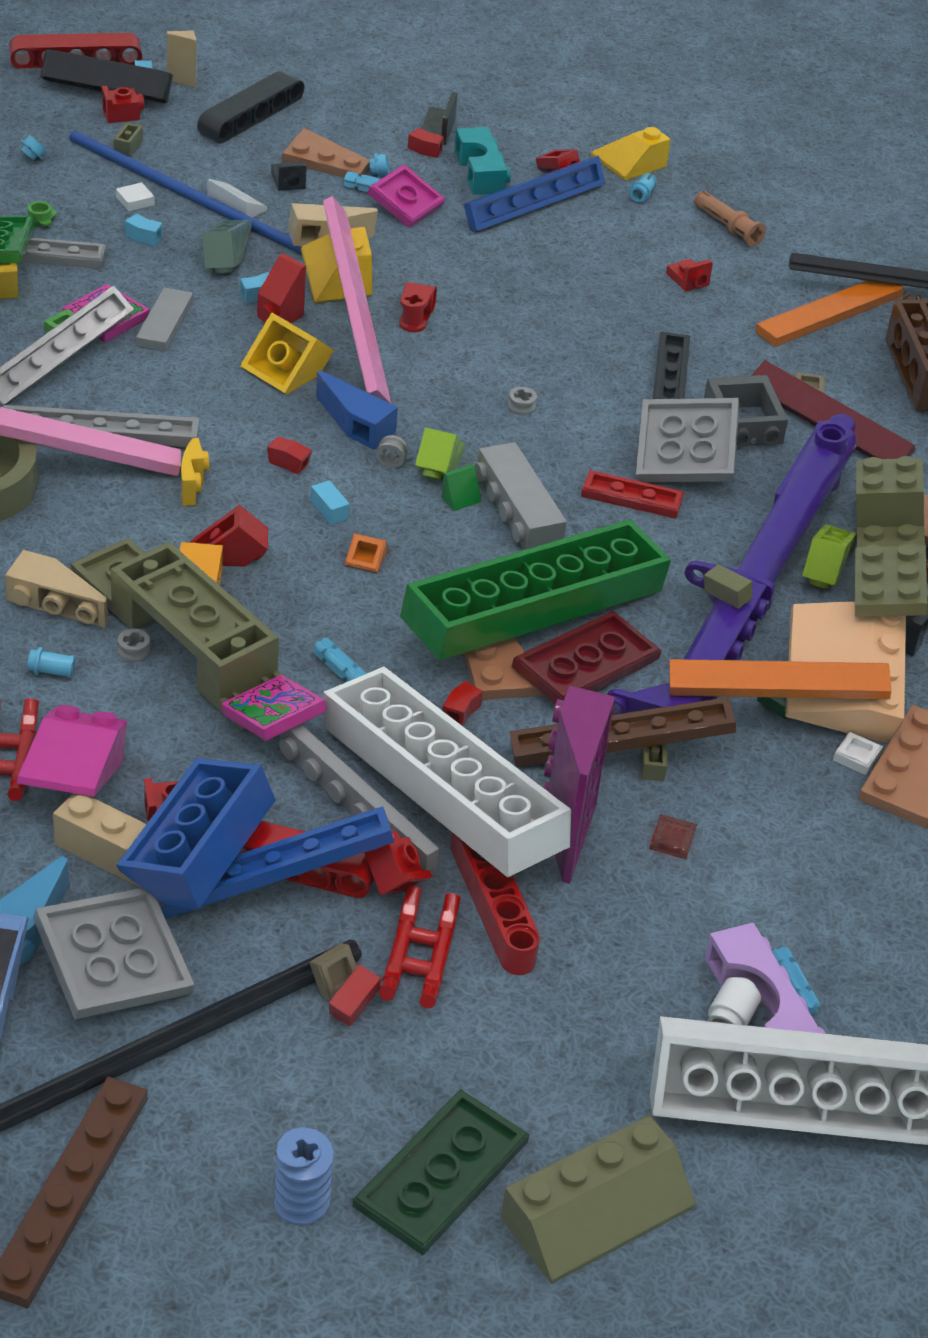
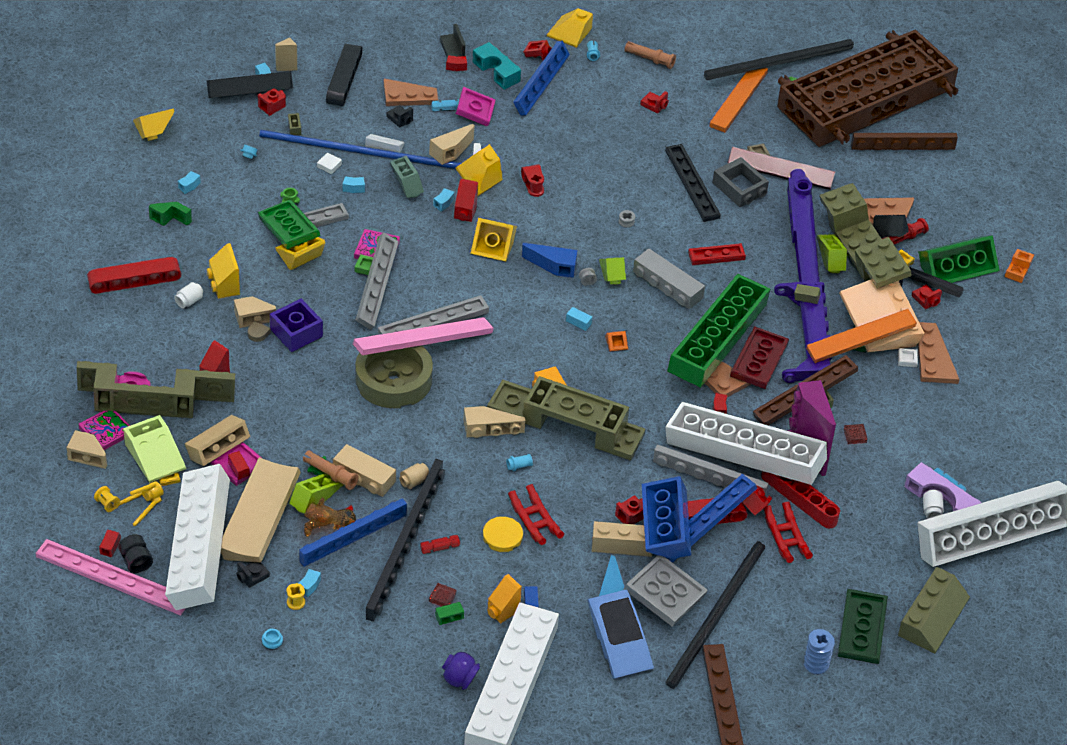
camera: 25 degrees left, 5 degrees up
(74, 751) = (576, 503): dark pink slope -> none
(88, 44) = (216, 68): red beam -> none
(133, 653) = (545, 440): light grey bush -> none
(164, 319) = (410, 239): light grey tile -> none
(192, 471) = (500, 328): yellow slope -> none
(241, 536) = (552, 356): red slope -> none
(273, 707) = (646, 443): dark pink tile -> none
(288, 454) = (539, 298): red piece -> none
(333, 969) = (761, 558): dark tan tile -> none
(337, 660) = (650, 407): medium azure axle -> none
(354, 995) = (777, 566): red piece -> none
(356, 300) = (514, 192): bright pink tile -> none
(379, 165) = (444, 89): medium azure plate -> none
(461, 488) = (636, 285): green slope -> none
(688, 440) = (728, 213): light grey plate -> none

